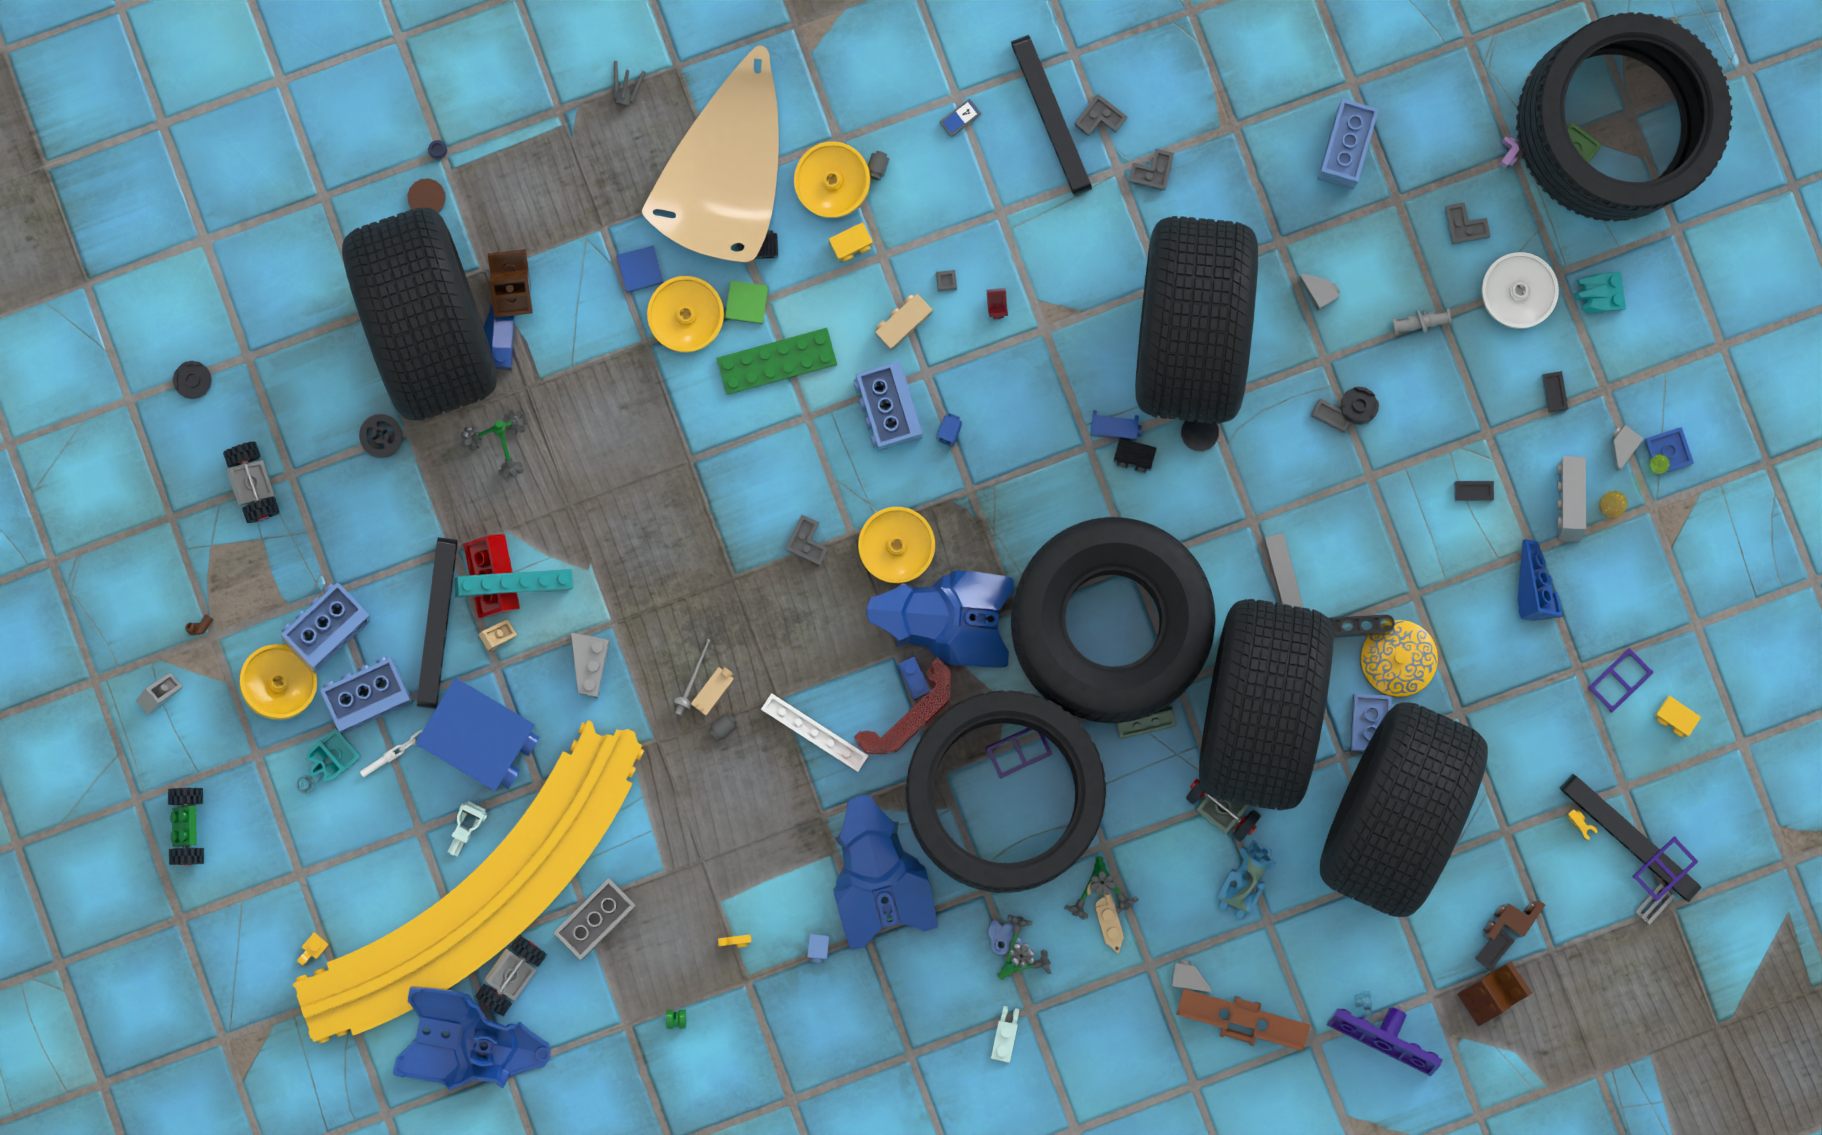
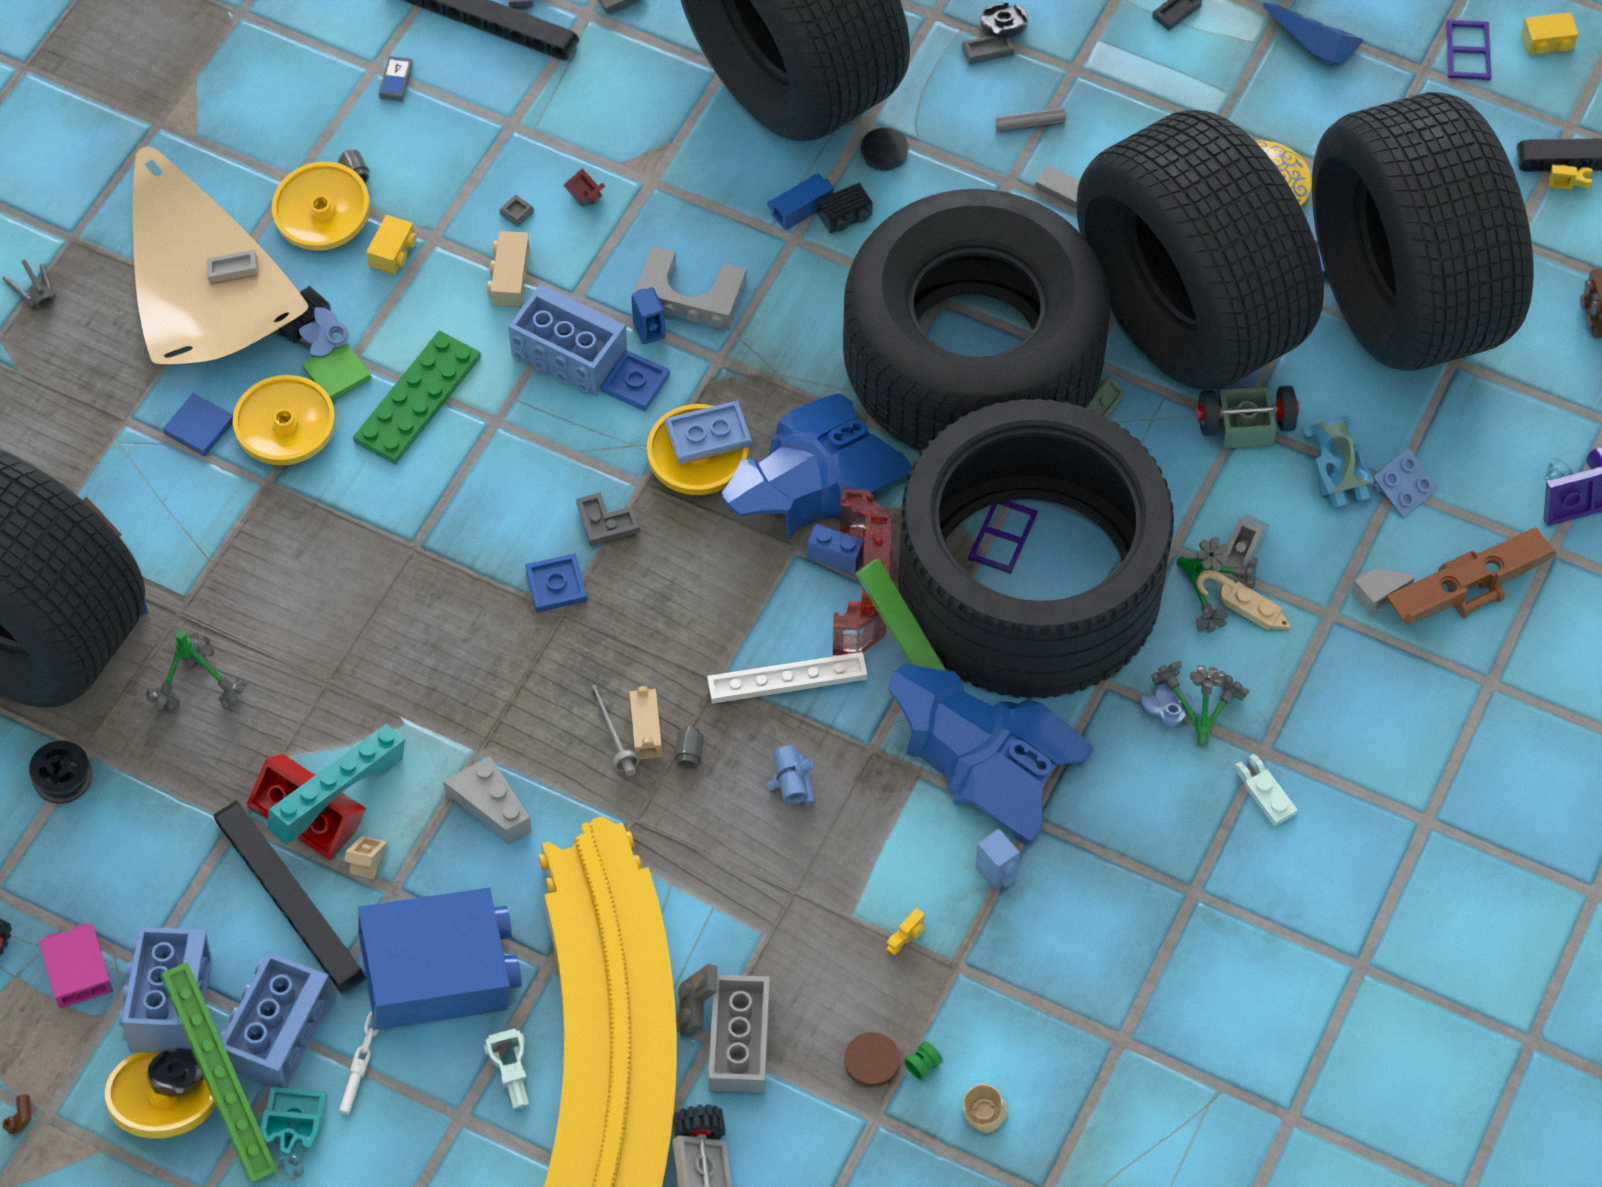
camera: 40 degrees left, 25 degrees down
(293, 678) = (175, 1073): none -> black tile
(295, 563) = (75, 965): none -> dark pink brick
(308, 704) = (218, 1072): none -> bright green plate
(593, 875) = (692, 997): none -> dark grey plate
(652, 993) = (872, 1059): none -> reddish brown tile
(683, 1073) = (984, 1108): none -> tan hair
(745, 556) = (556, 582): none -> blue tile
(747, 175) = (232, 266): none -> light grey tile
(756, 270) = (320, 332): none -> medium blue plate
(760, 796) = (792, 776): none -> medium blue pin
(893, 771) = (897, 616): none -> bright green tile
(908, 462) = (635, 380): none -> blue tile
(909, 542) = (708, 432): none -> medium blue tile
(996, 456) = (712, 308): none -> light grey arch
(1143, 882) = (1245, 541): none -> light grey slope
(1271, 927) = (1404, 483): none -> medium blue hinge
(1306, 490) = (1030, 119): none -> light grey axle

